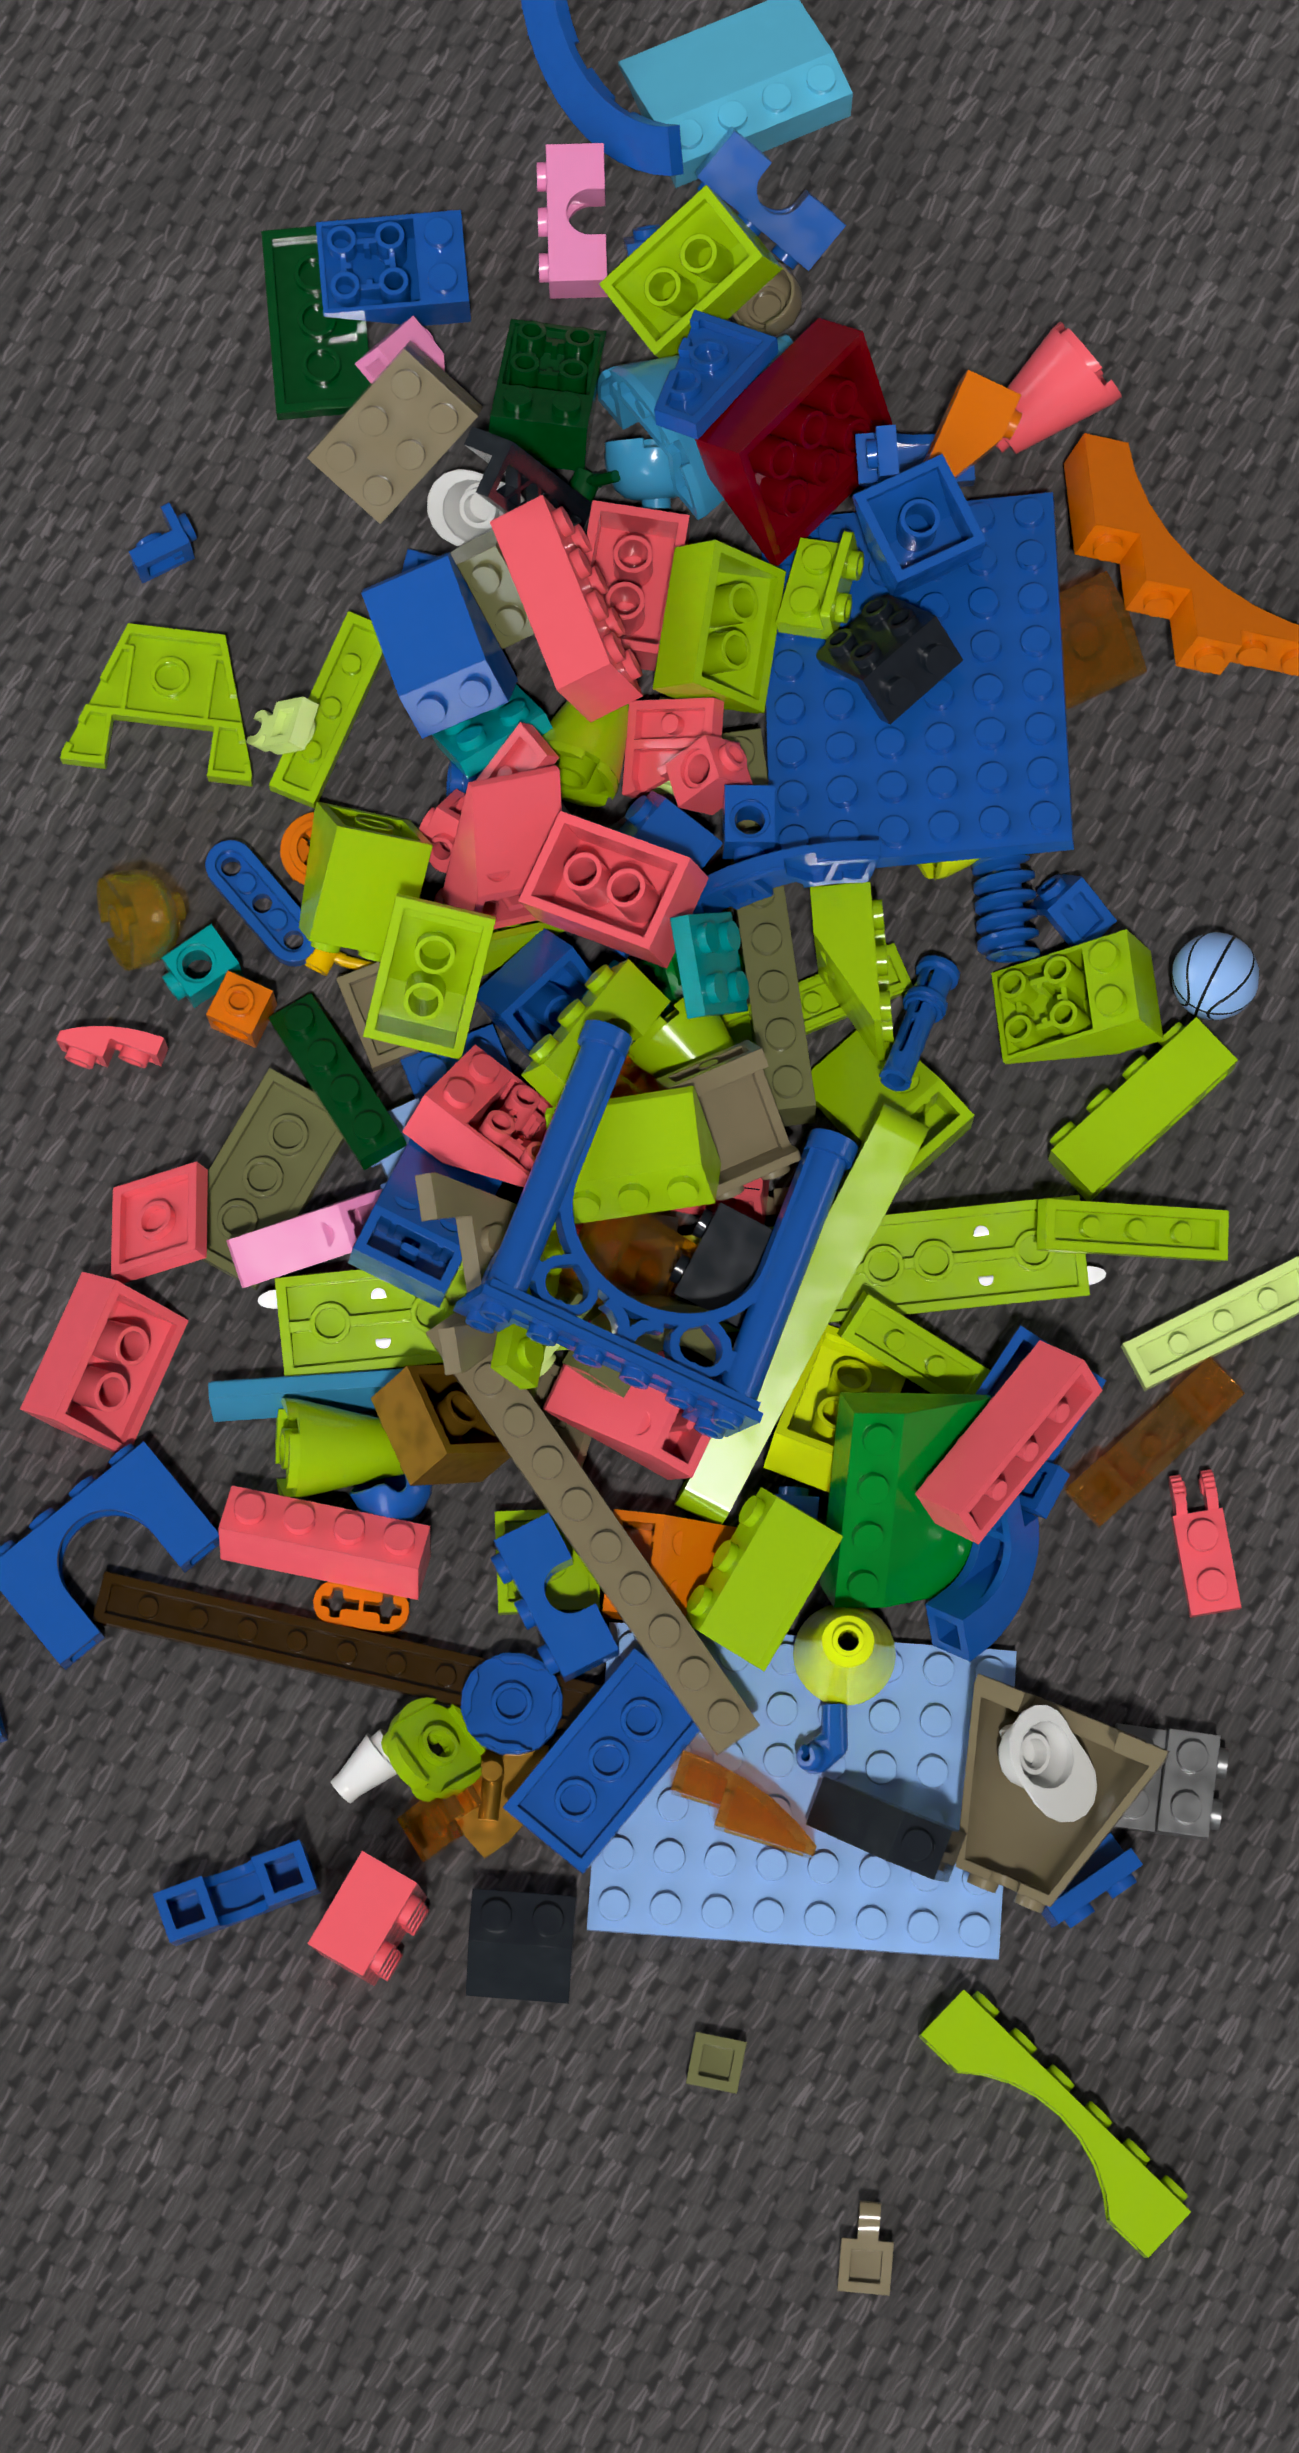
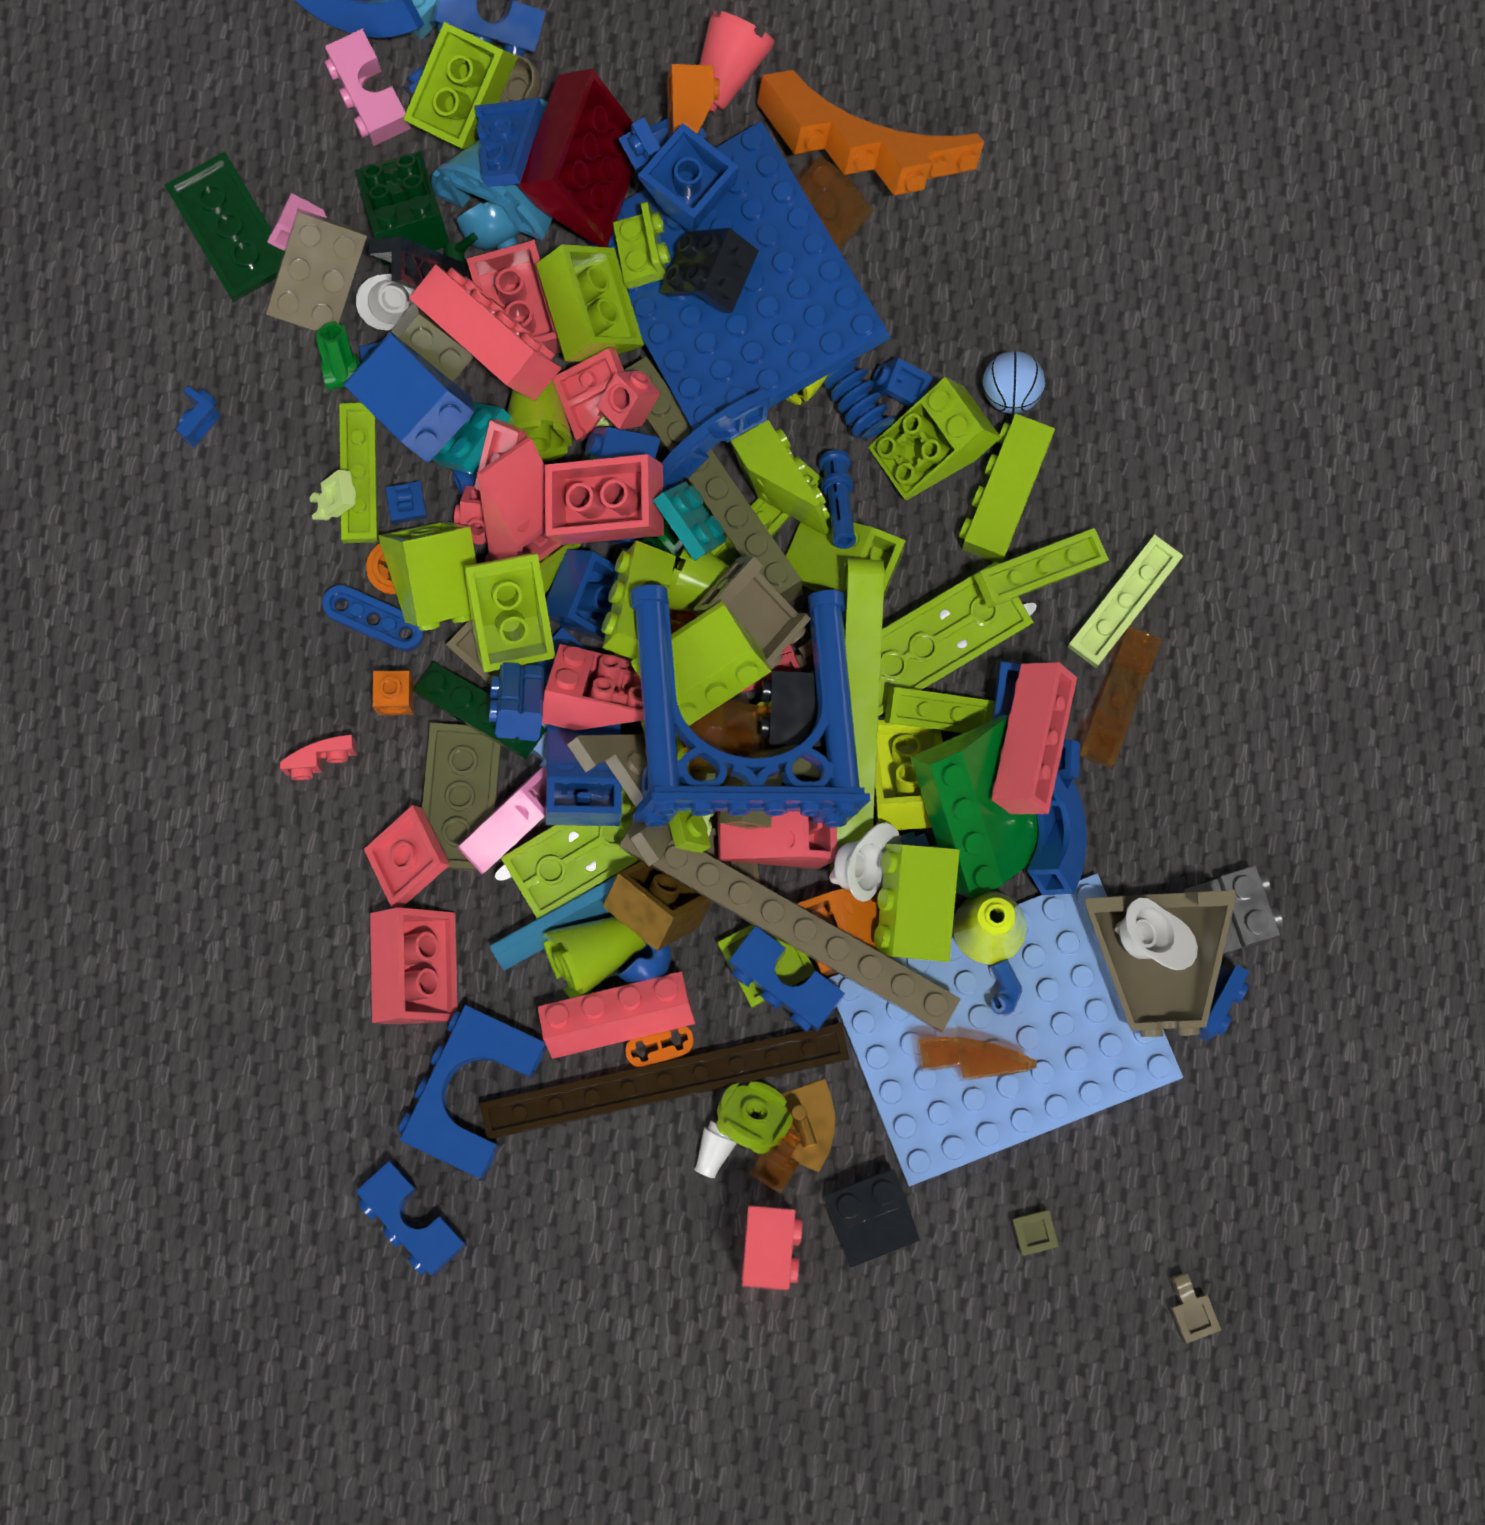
camera: 25 degrees left, 0 degrees up
(141, 916) = (298, 662): clear yellow cylinder -> none
(171, 682) = (242, 503): lime wing -> none
(205, 946) = (349, 663): teal brick -> none
(237, 1894) = (669, 1273): blue arch -> none
(323, 961) = (431, 637): yellow hand -> none
(372, 548) = (336, 354): none -> green piece
(373, 774) = (406, 502): none -> blue tile
(386, 1094) = (518, 702): none -> blue brick
(395, 268) = (264, 169): blue slope -> none
(511, 1704) = (790, 1062): blue tile -> none
(604, 1763) = (870, 1072): blue plate -> none
(715, 1494) = (859, 862): none -> white piece
(753, 804) = (665, 405): blue brick -> none
(886, 1830) = (1073, 1028): black slope -> none
(1133, 2198) = (1346, 1191): lime arch -> none
(1203, 1550) = (1183, 751): coral hinge -> none

